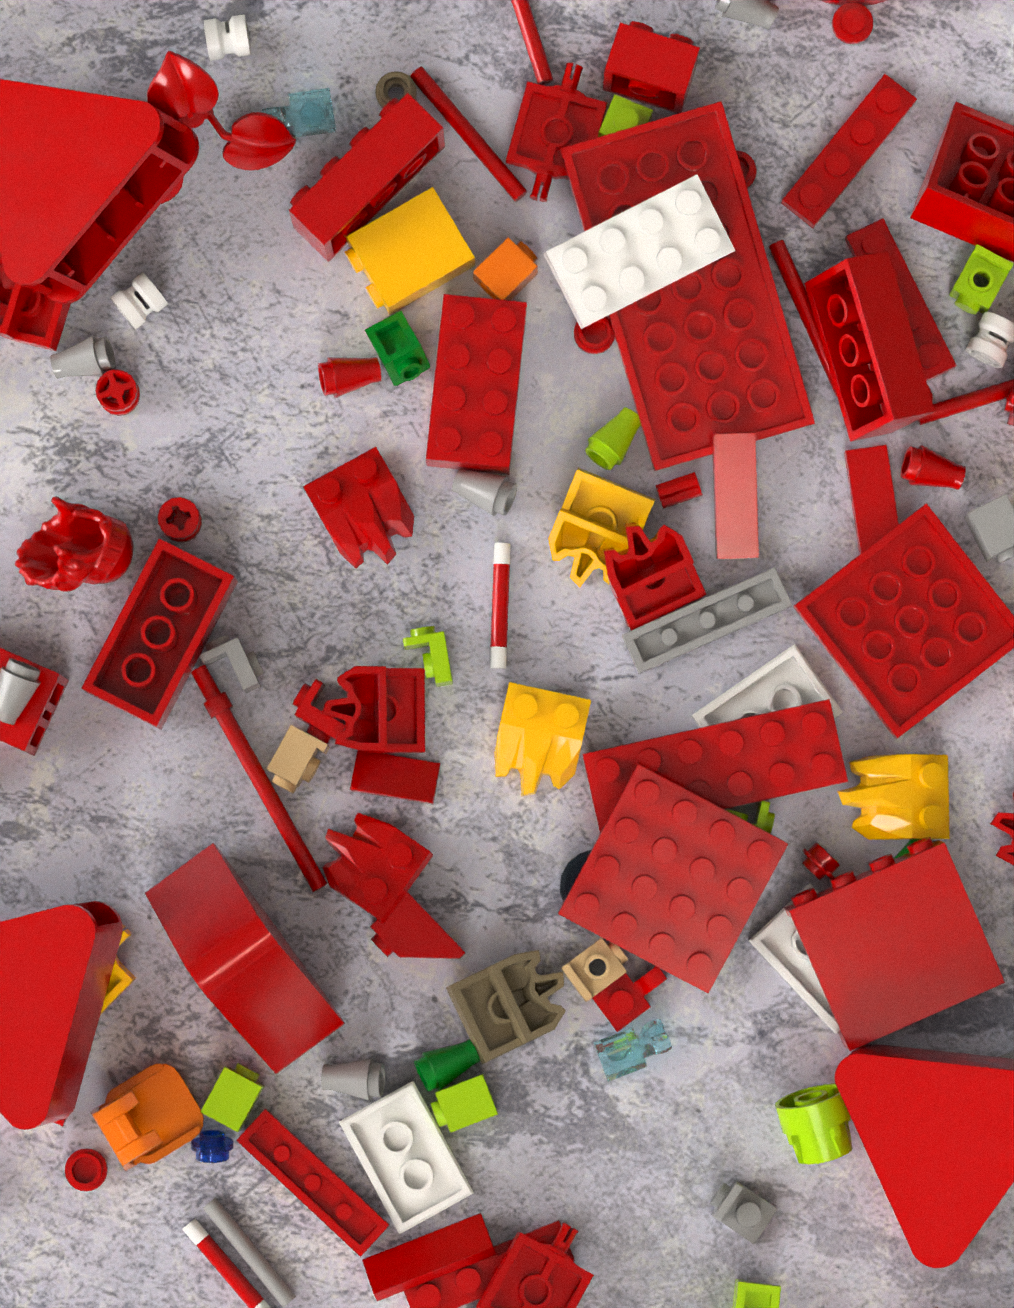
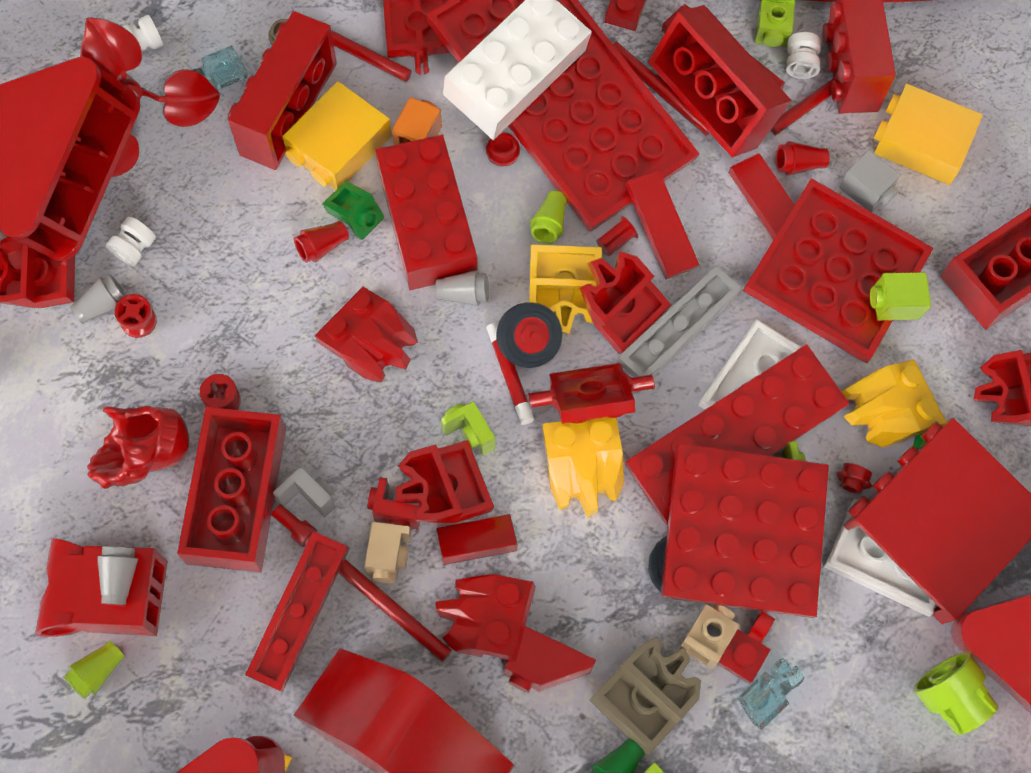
camera: 25 degrees left, 15 degrees down
(184, 787) = (297, 611): none -> red plate
(534, 575) = (529, 335): none -> black wheel
(575, 666) = (592, 393): none -> red plate
(956, 683) = (901, 296): none -> lime brick

